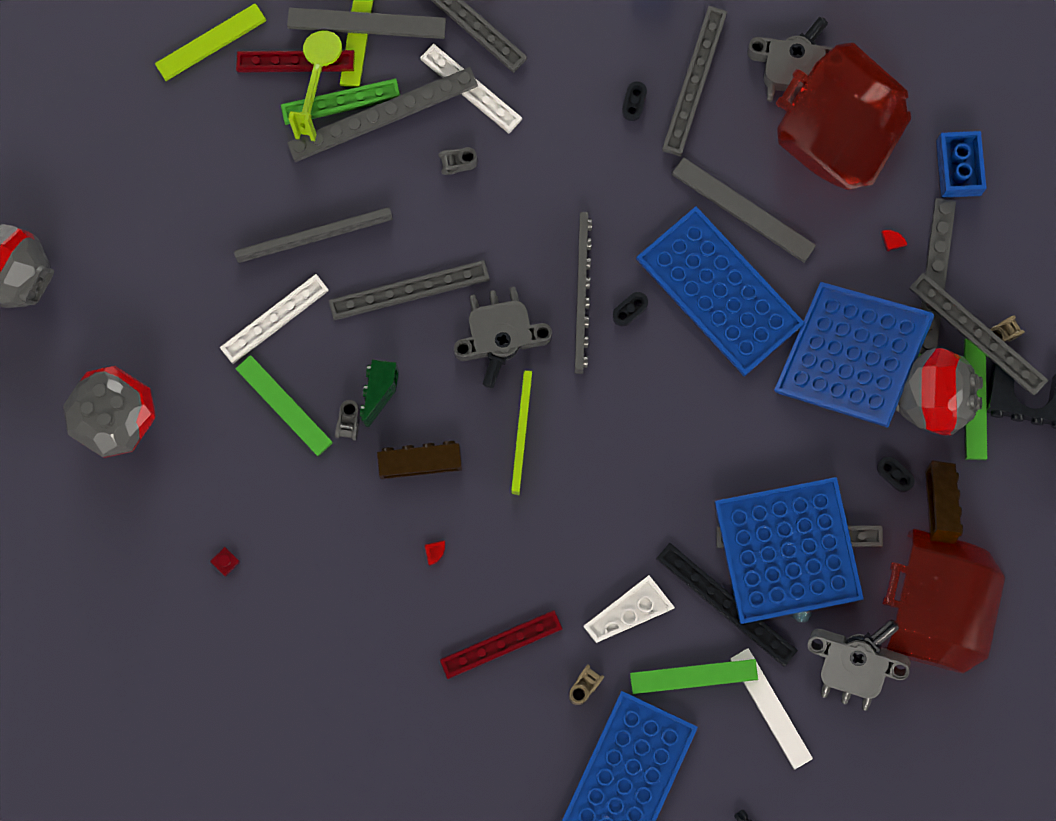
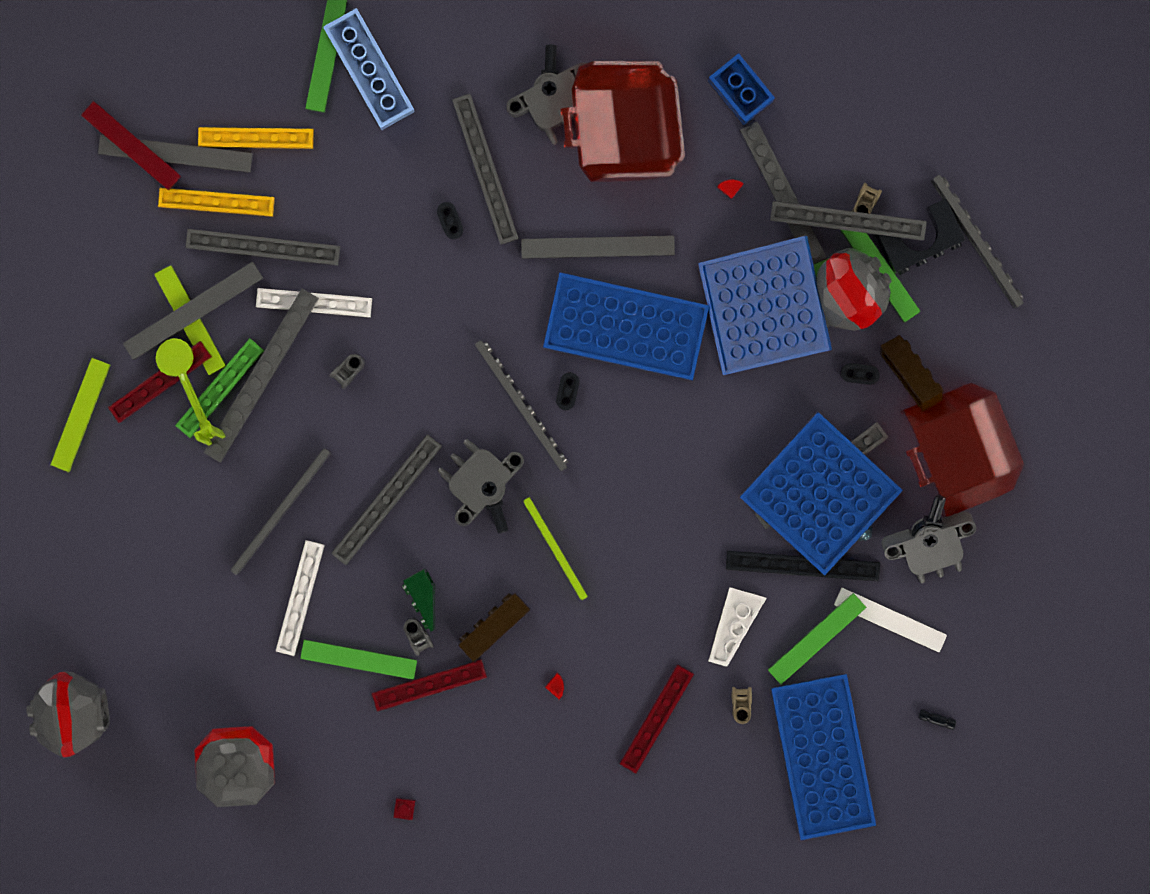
camera: 35 degrees left, 10 degrees up
(327, 471) = (429, 685): none -> dark red tile

